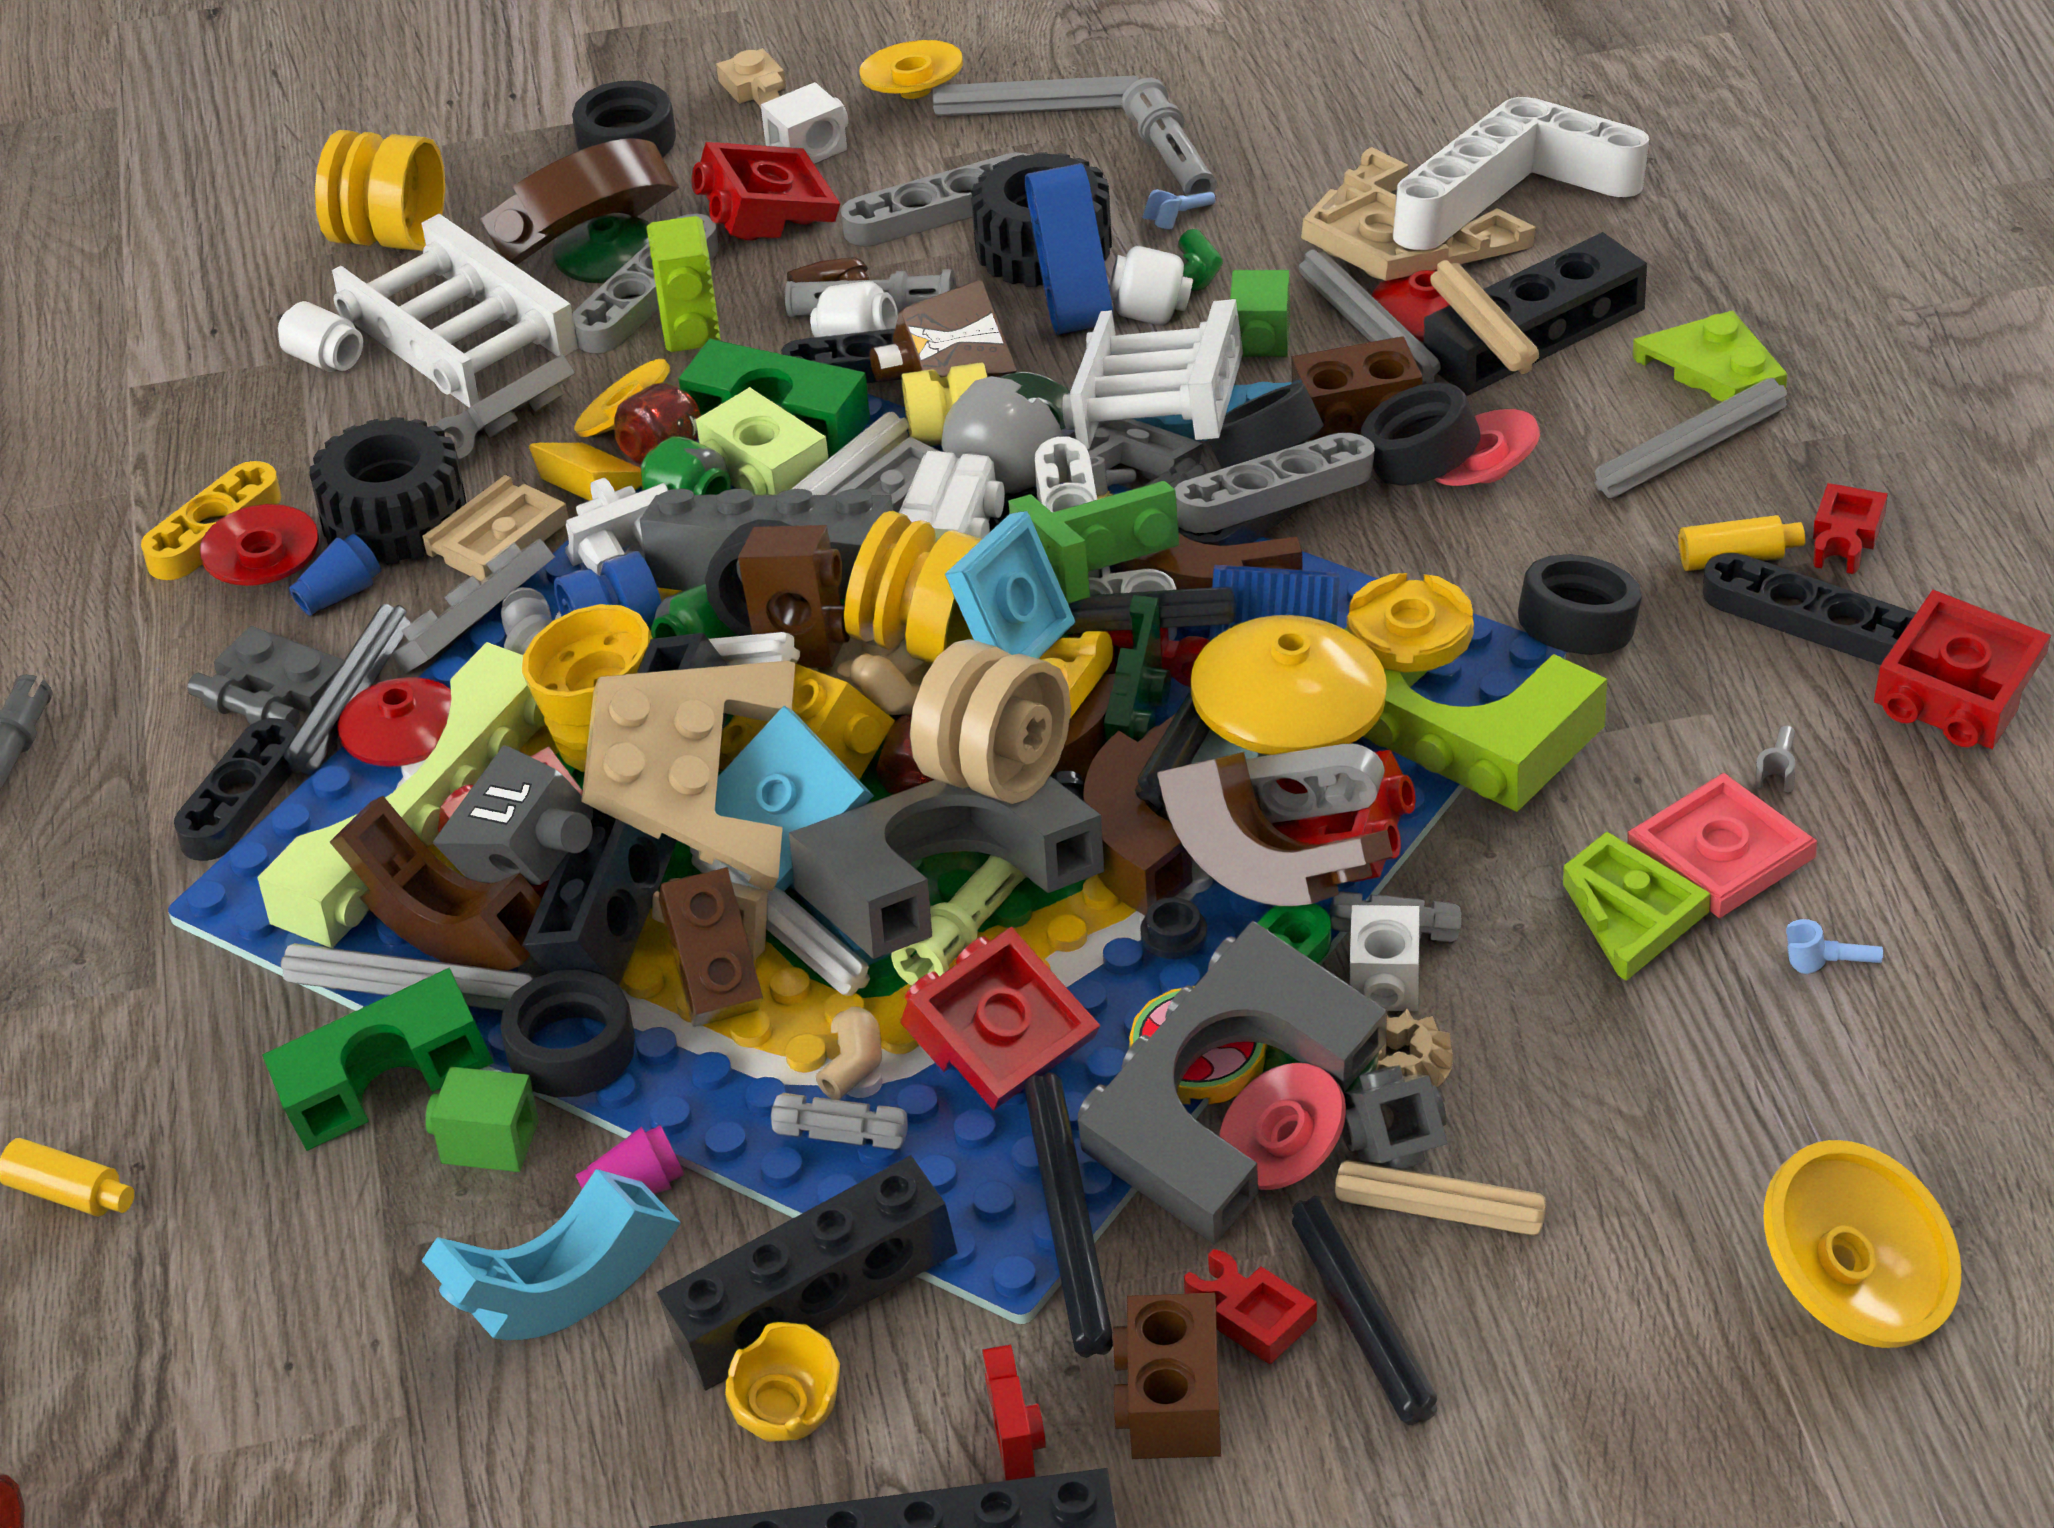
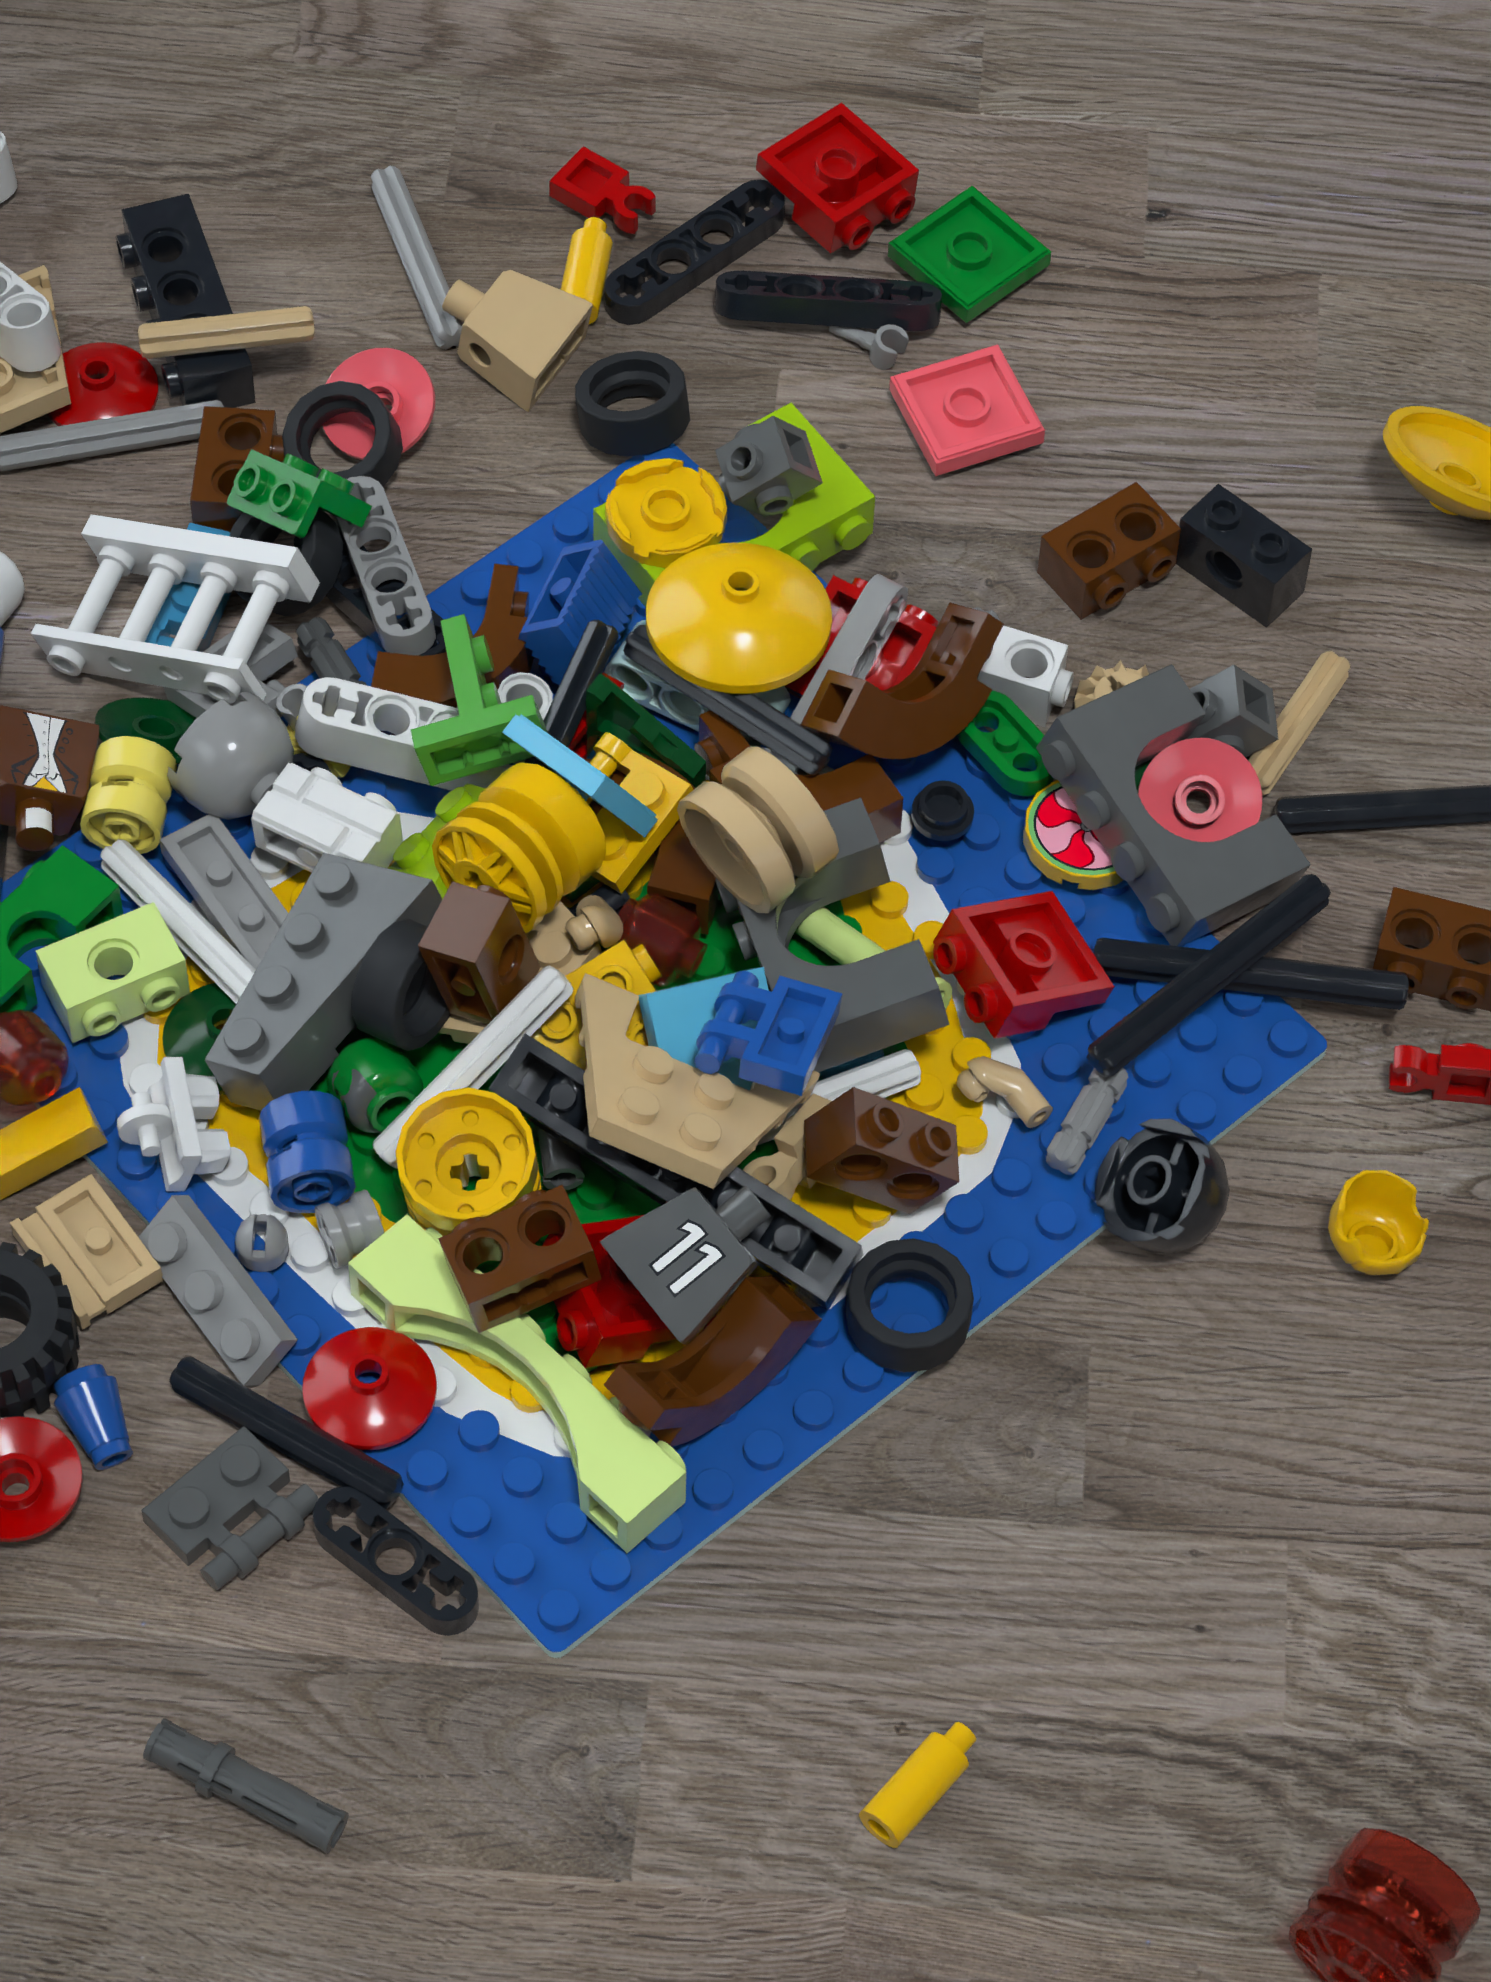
camera: 80 degrees left, 15 degrees up
(329, 1068) = (880, 1531): green arch -> none
(389, 974) = (771, 1434): light grey axle -> none
(483, 1119) = (974, 1404): bright green brick -> none
(489, 706) = (527, 1272): none -> reddish brown brick
(565, 1272) = (1184, 1365): medium azure arch -> none
(640, 1157) = (1075, 1296): dark pink cone -> none
(685, 465) = (132, 1045): green head -> none
(757, 1190) = (1162, 1187): none -> black cylinder
(765, 792) = (786, 1040): none -> blue plate
(810, 1267) = (1270, 1174): black brick -> none
(1030, 1156) = (1208, 975): none -> black axle
(1257, 1310) = (1376, 872): red plate -> none
(1263, 311) = (62, 508): bright green brick -> none
(1313, 394) = (290, 494): none -> green bracket
(1481, 657) = (767, 467): none -> dark grey brick
(1586, 988) = (1109, 551): none -> reddish brown brick
(1619, 510) = (518, 332): none -> tan torso
(1631, 902) = (1009, 491): lime wing -> none
(1632, 1092) = (1243, 555): none -> black brick
(1712, 355) = (309, 201): lime wing -> none
(1805, 712) = (827, 300): none -> black beam
(1810, 952) = (1106, 385): light blue hand -> none
(1937, 799) = (969, 253): none -> green plate

